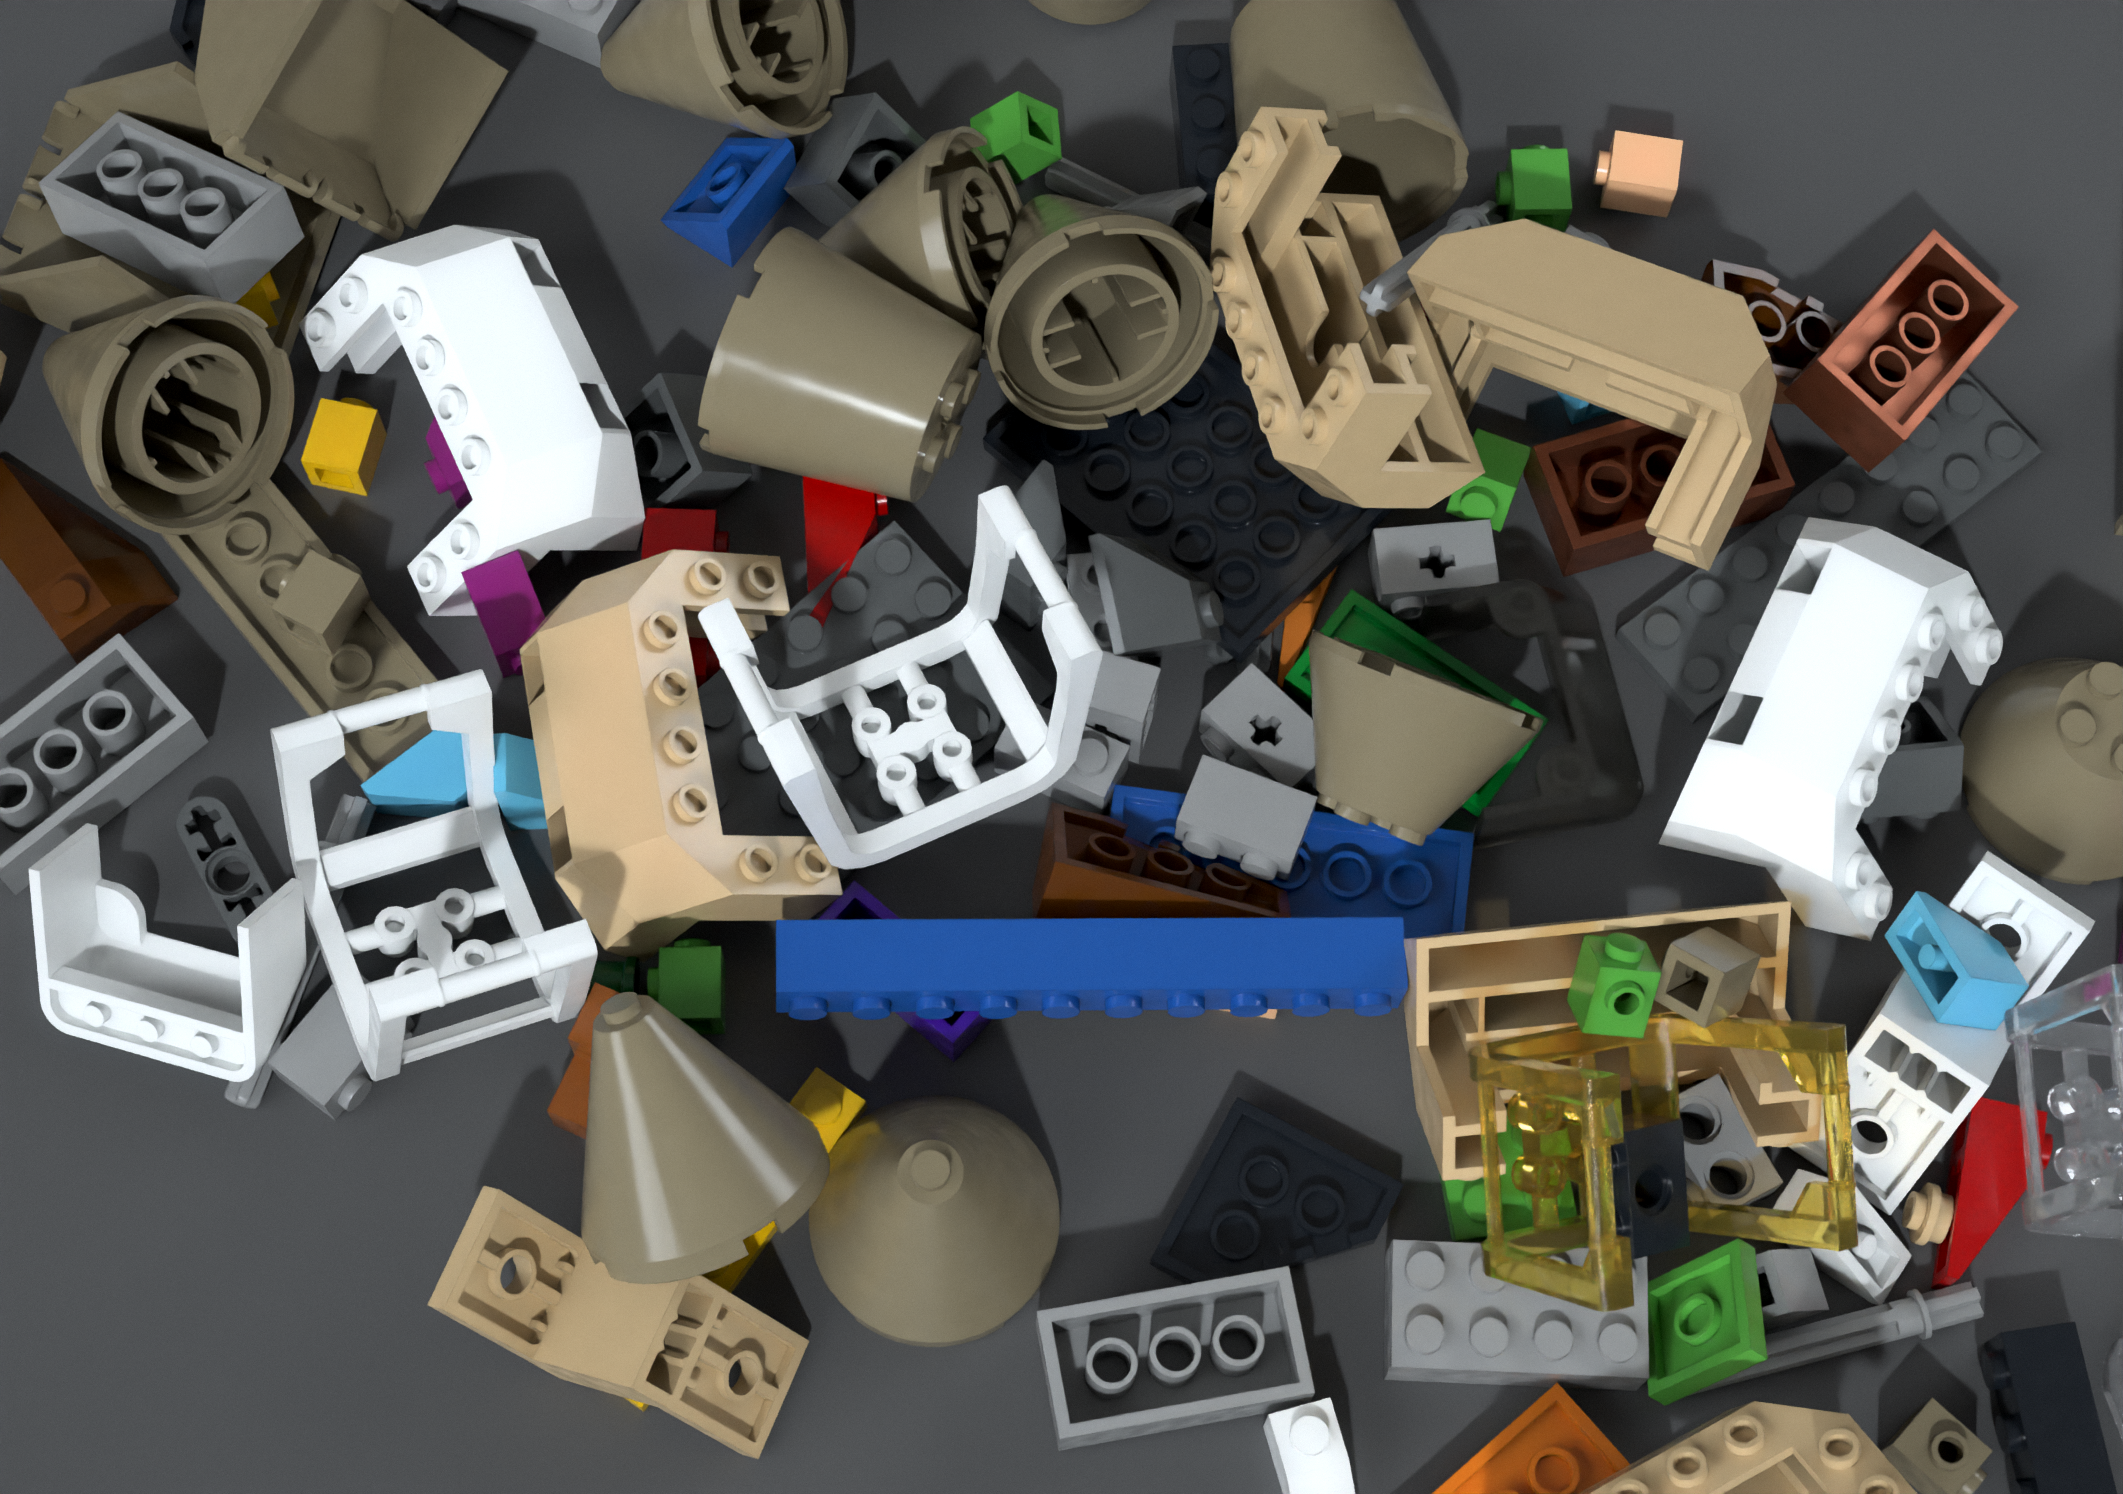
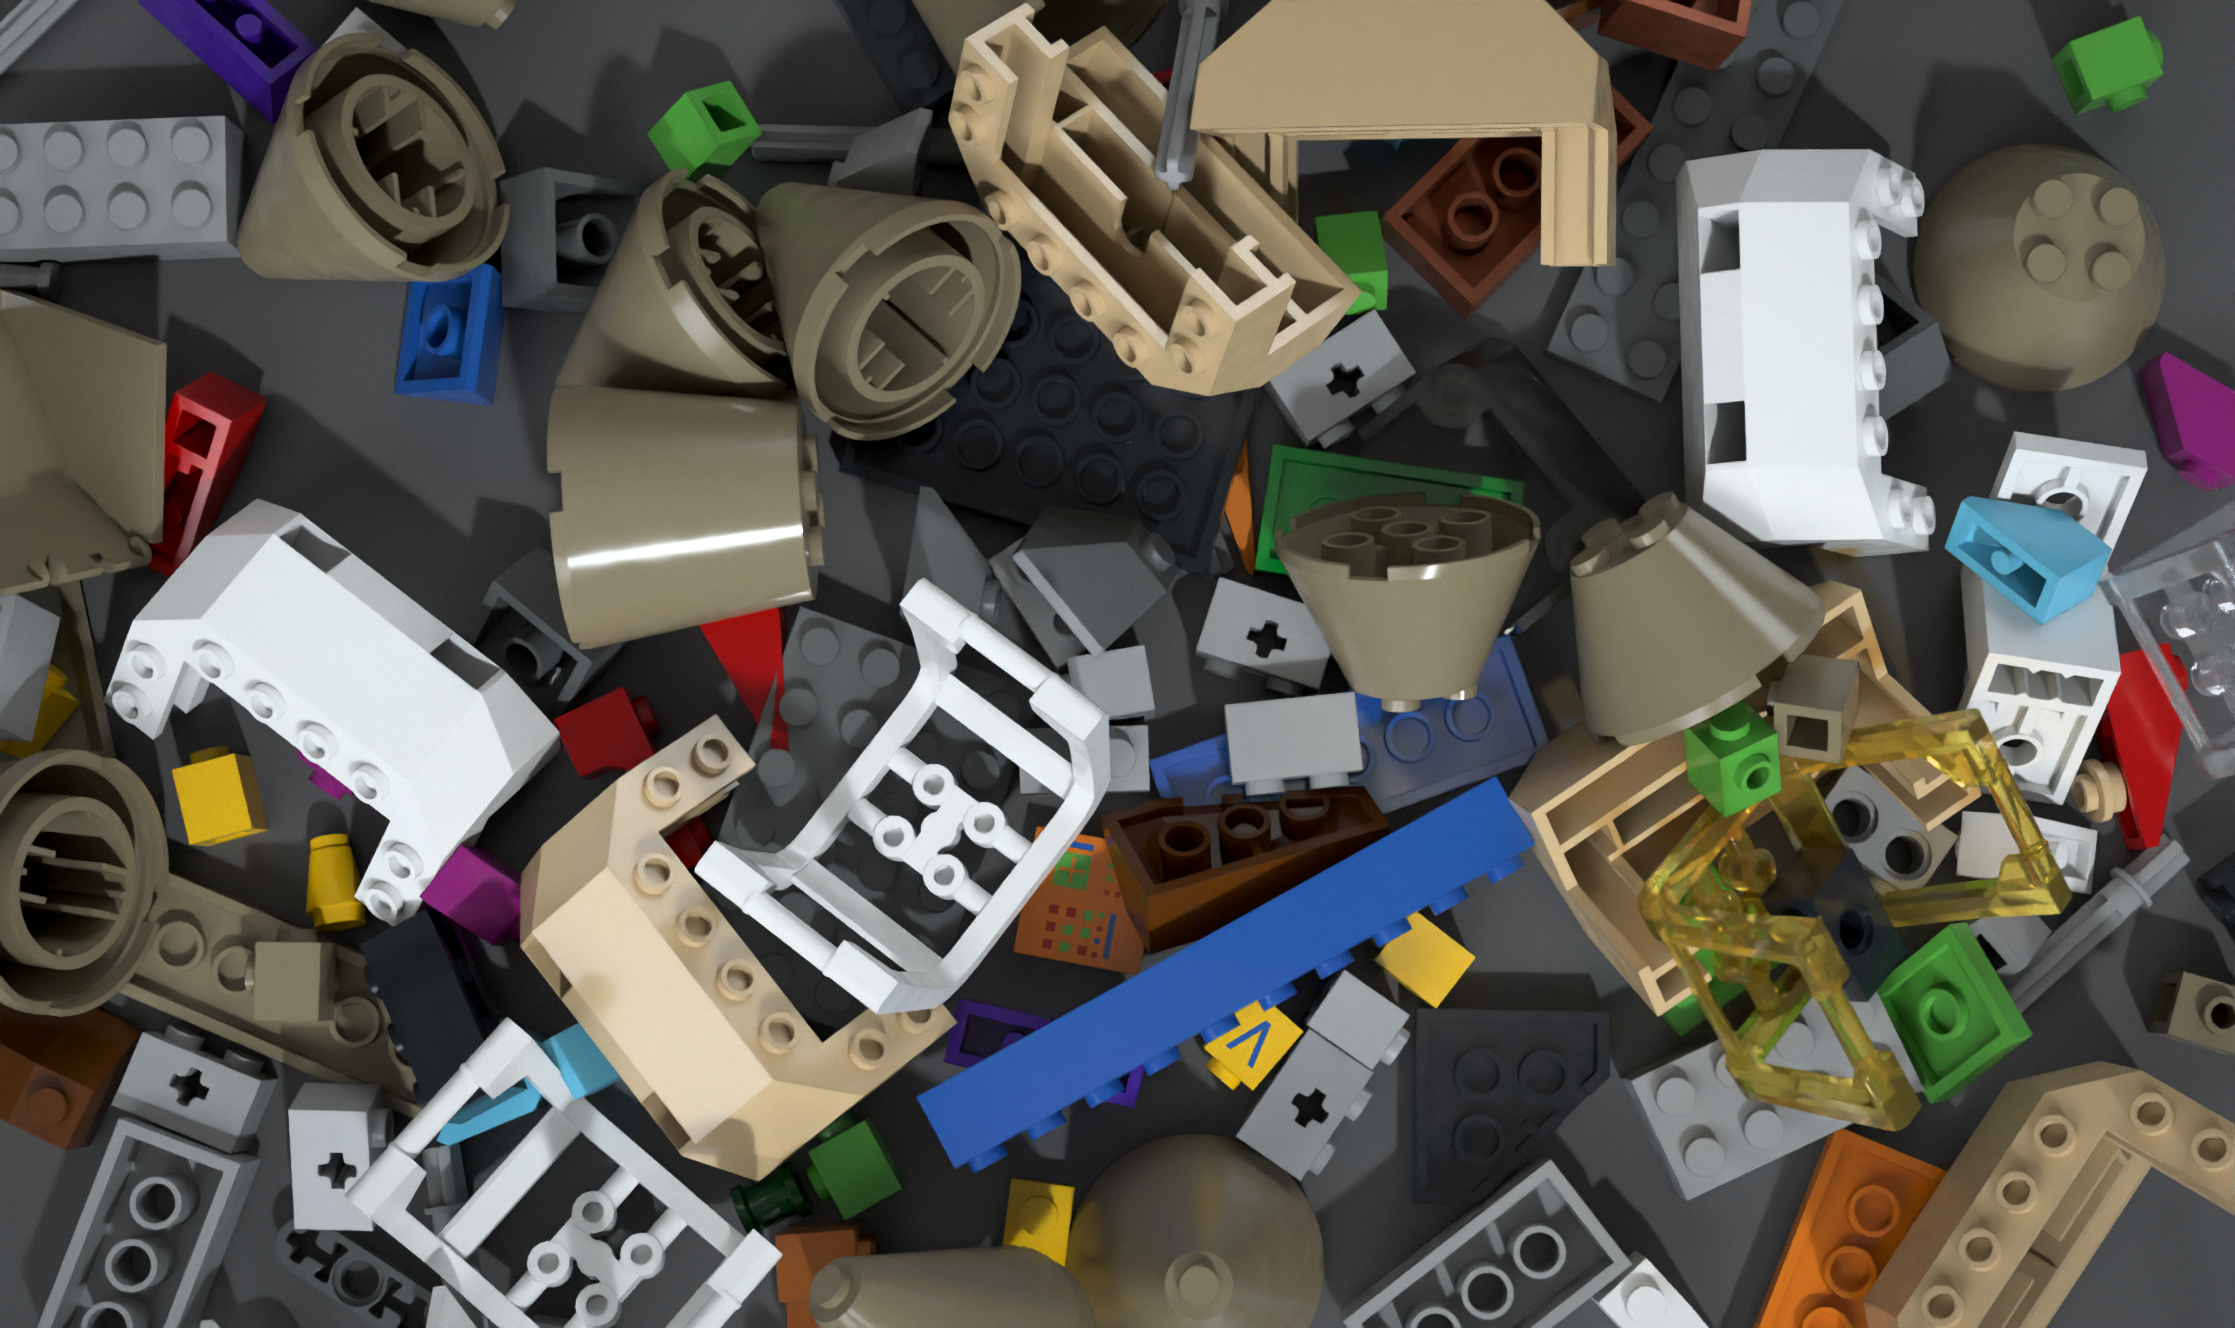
camera: 20 degrees left, 15 degrees up
(173, 628) = (159, 1090): none -> light grey brick
(248, 772) = (333, 1142): none -> light grey brick
(387, 561) = (333, 884): none -> yellow cone
(421, 643) = (433, 1004): none -> black brick
(489, 181) = (205, 448): none -> red slope
(988, 869) = (1081, 913): none -> orange tile
(1080, 1054) = (1252, 1047): none -> yellow brick
(1117, 1101) = (1271, 1119): none -> light grey brick
(1180, 1072) = (1358, 1020): none -> light grey brick
(1263, 1058) = (1424, 960): none -> yellow brick
(1619, 846) = (1677, 621): none -> dark tan cone

